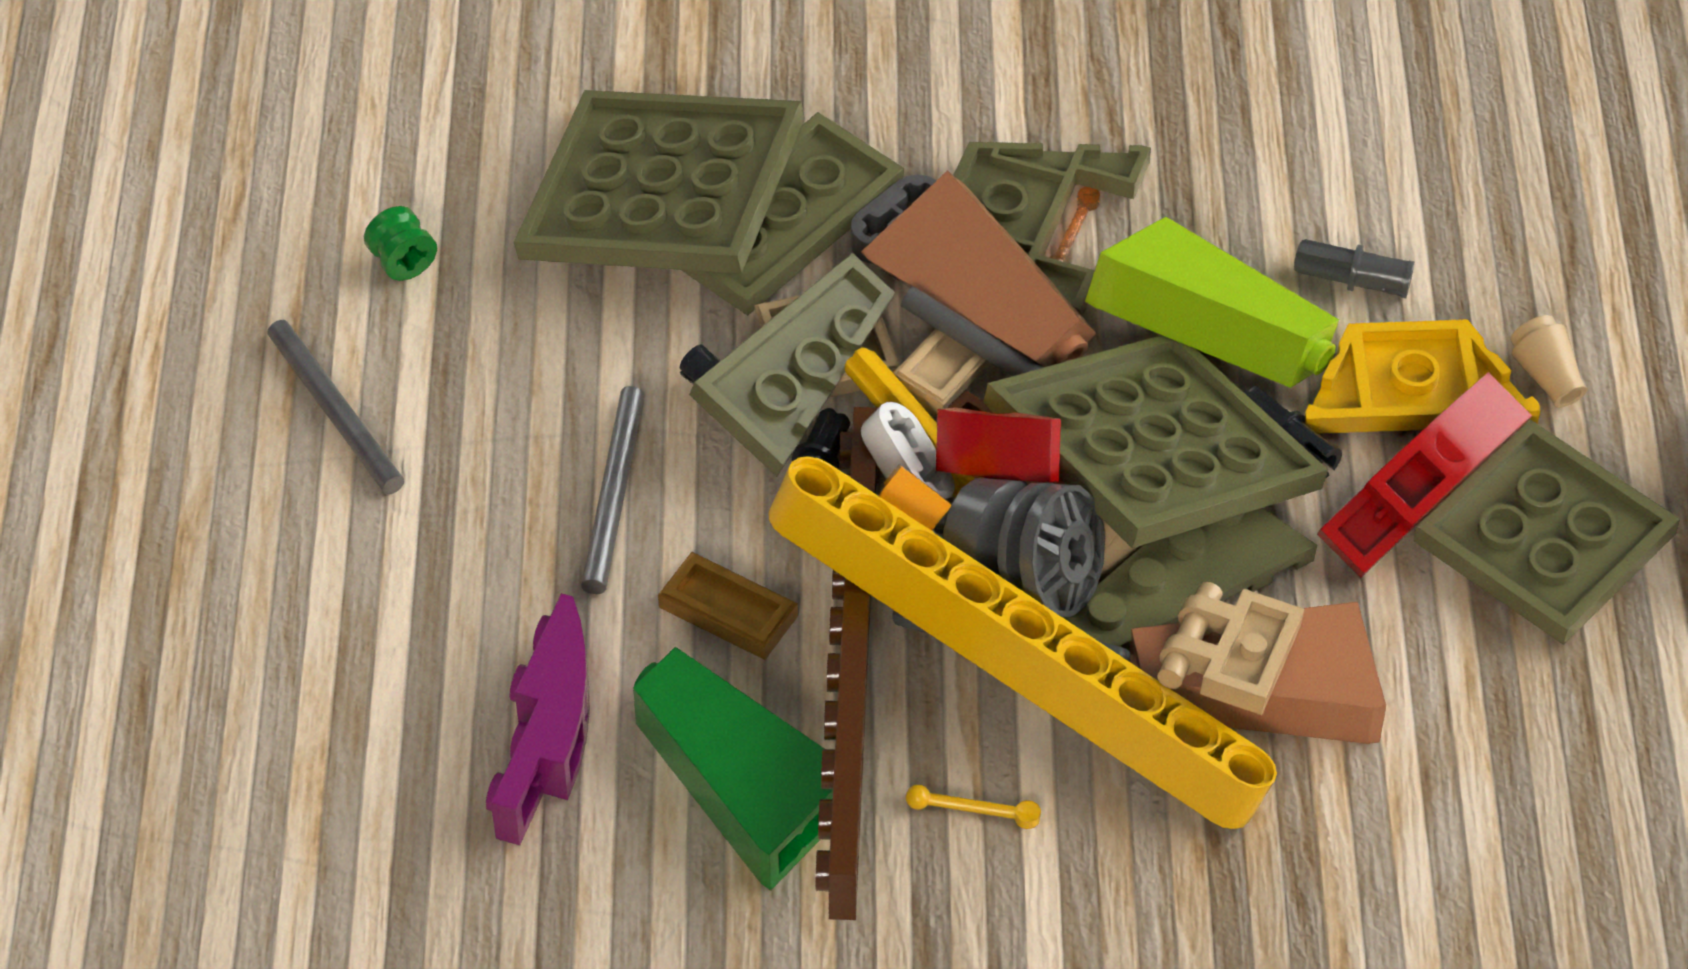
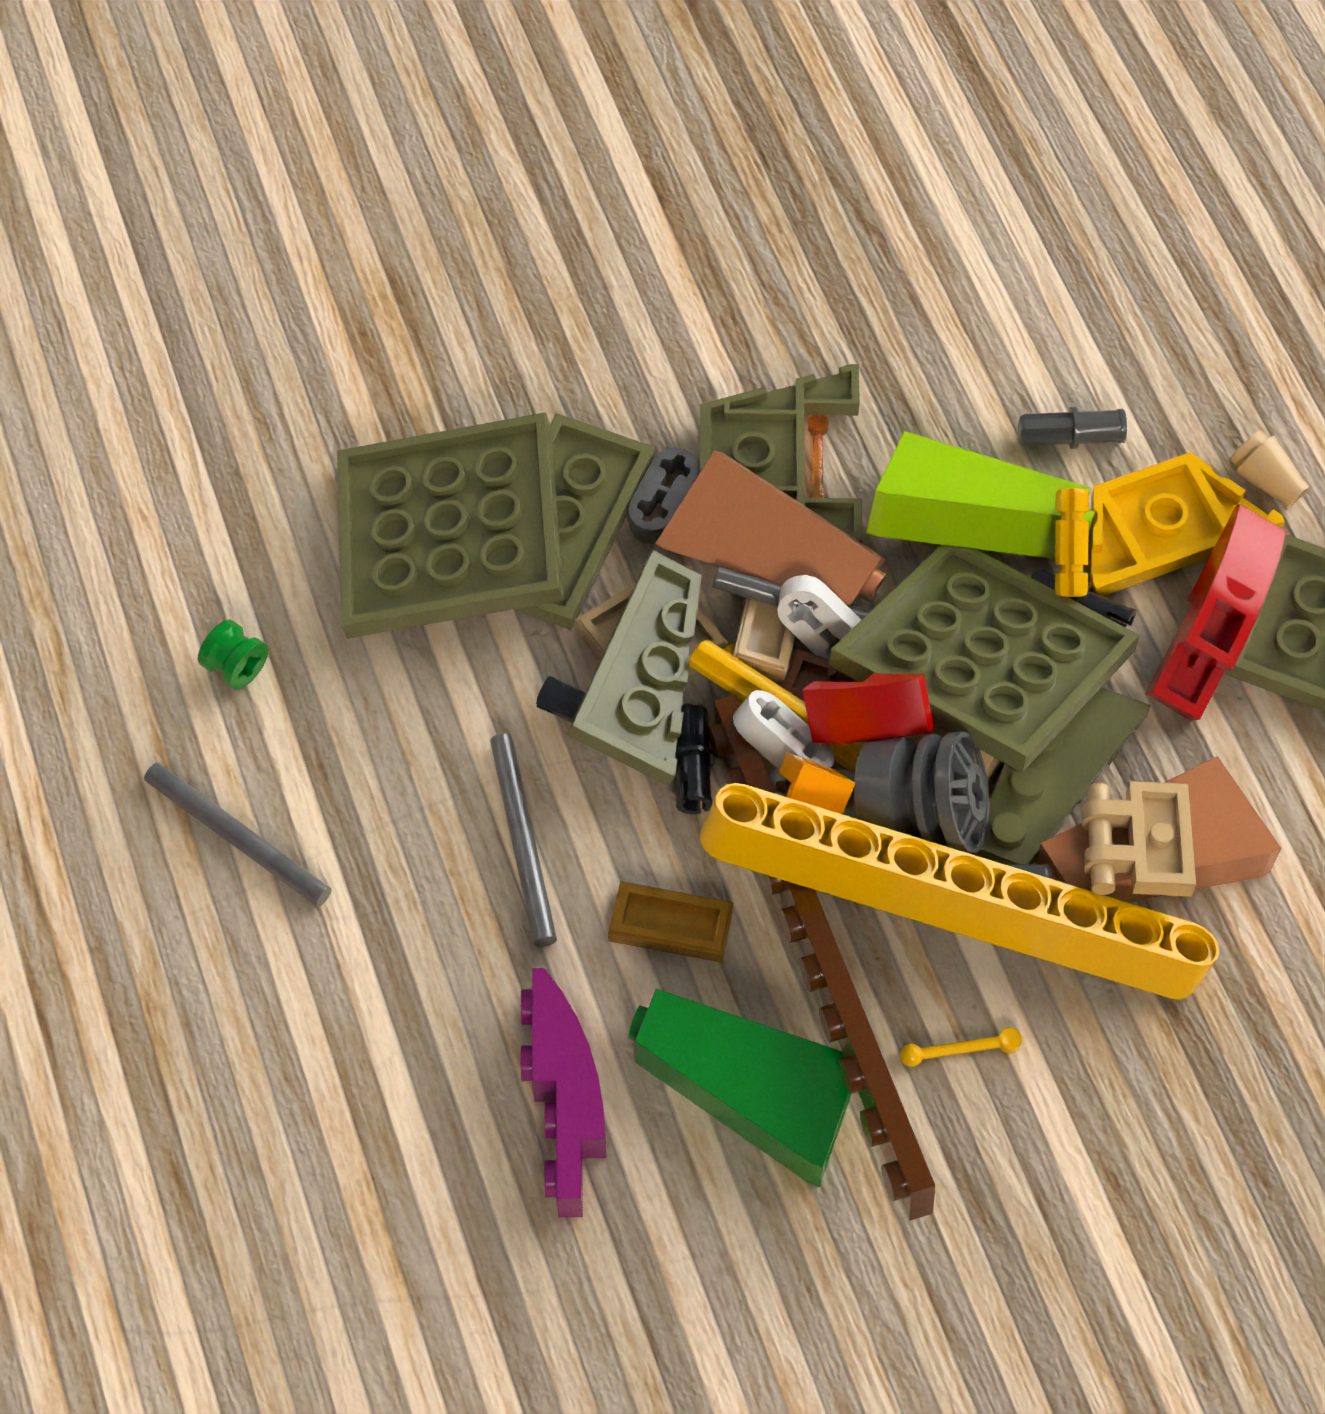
camera: 20 degrees left, 10 degrees up
(990, 364) = (814, 625): none -> white beam
(1288, 358) = (1071, 542): none -> yellow axle

